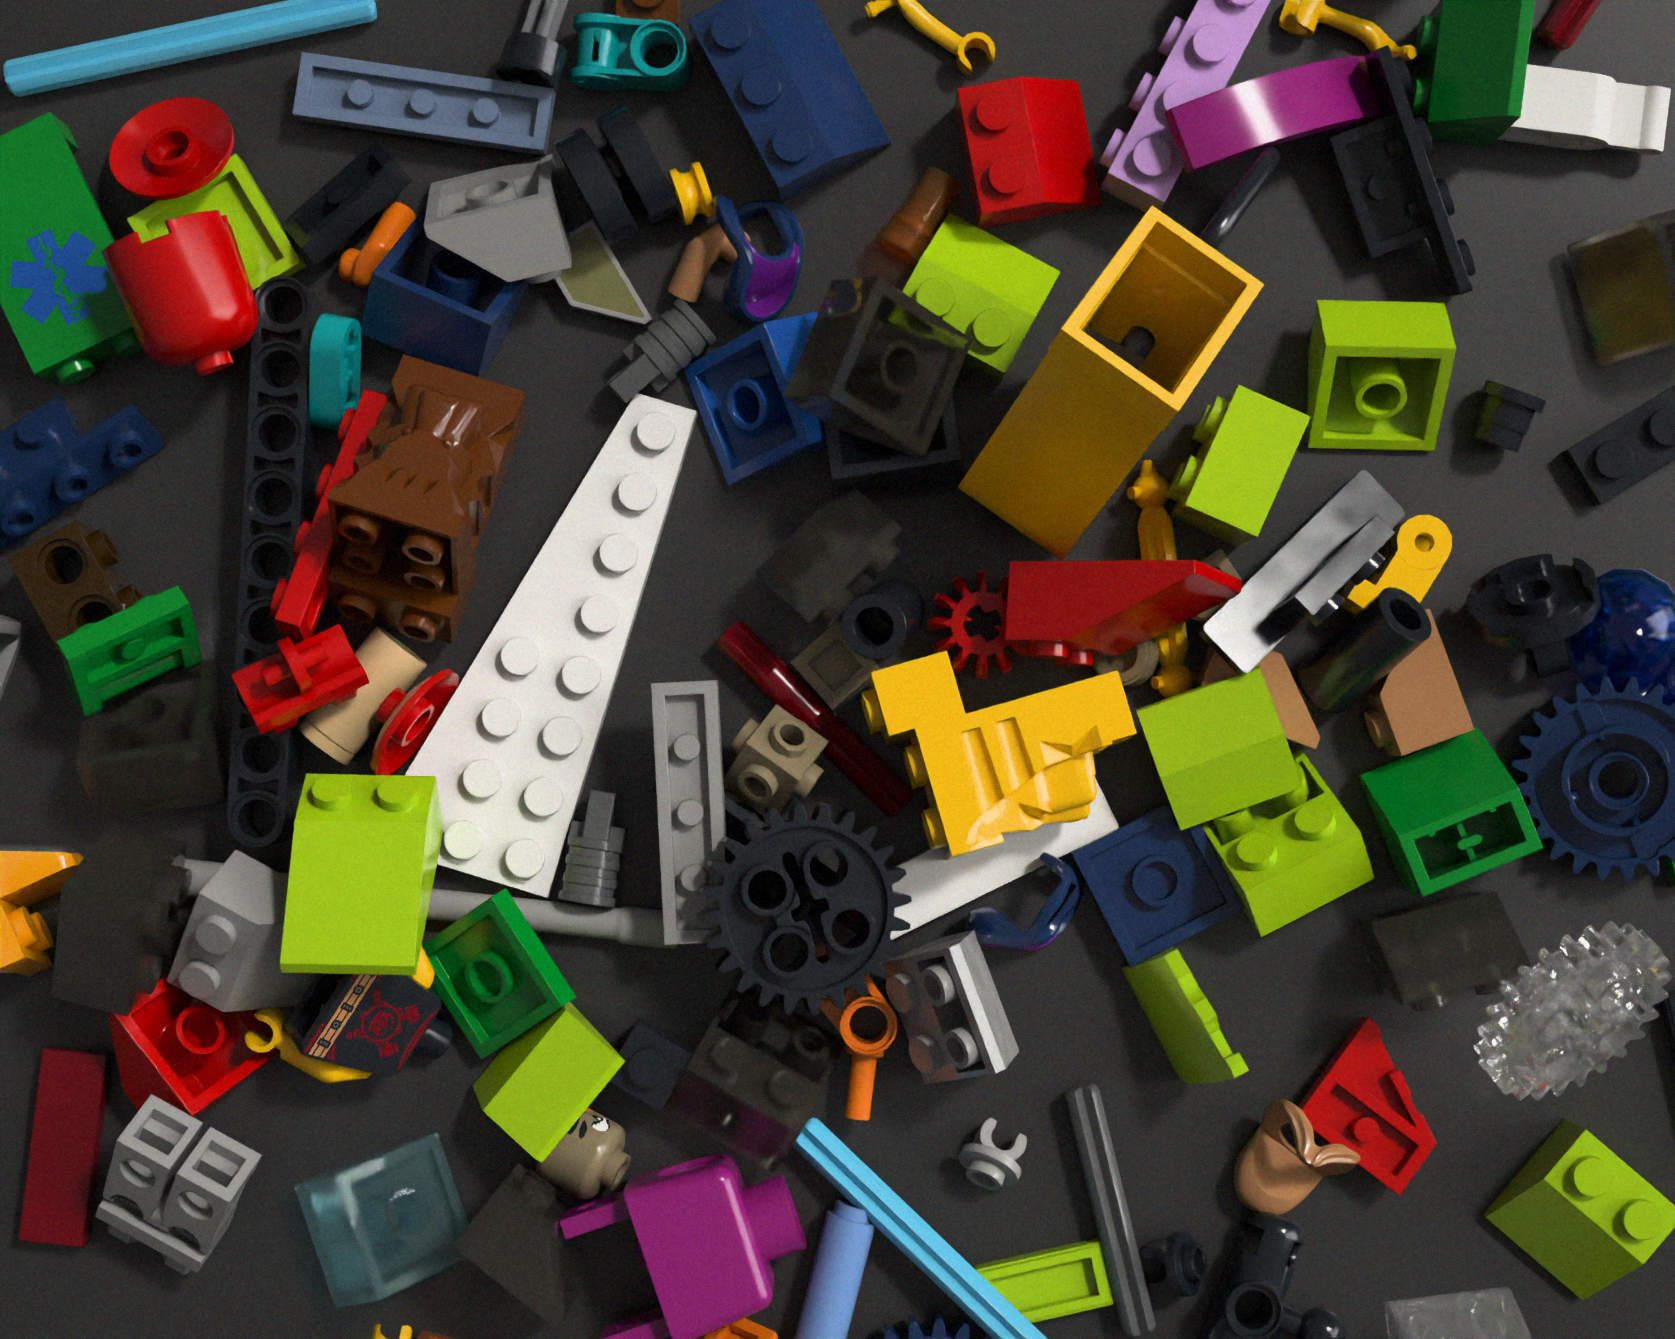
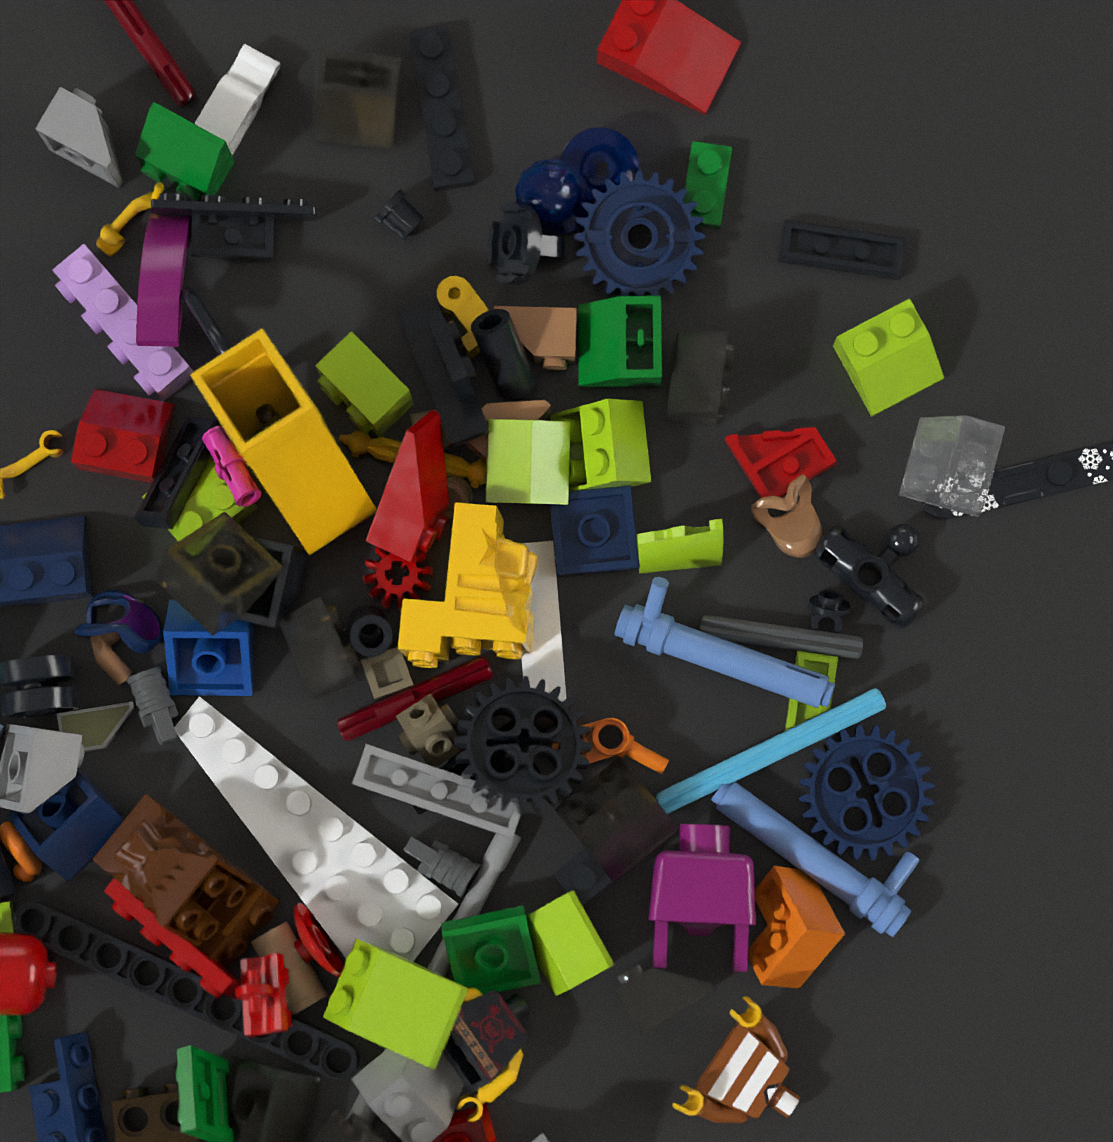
camera: 65 degrees left, 5 degrees down
(334, 370) = (85, 906): teal beam -> none
(384, 1220) = (615, 1080): clear light blue slope -> none
(587, 1157) = (624, 940): dark tan head -> none
(692, 193) = (66, 645): yellow bush -> none
(912, 227) = (128, 503): clear orange pin -> none
(950, 1010) = (620, 684): light grey slope -> none
(989, 1165) = (724, 698): light grey plate -> none
(1000, 931) = (586, 638): dark blue piece -> none
(1003, 251) = (176, 475): none -> black tile
(1039, 323) = (231, 466): none -> dark pink pin
(1045, 1042) = (663, 635): none -> medium blue cylinder
(1378, 374) = (344, 281): lime slope -> none
(1573, 1011) = (764, 316): clear gear -> none

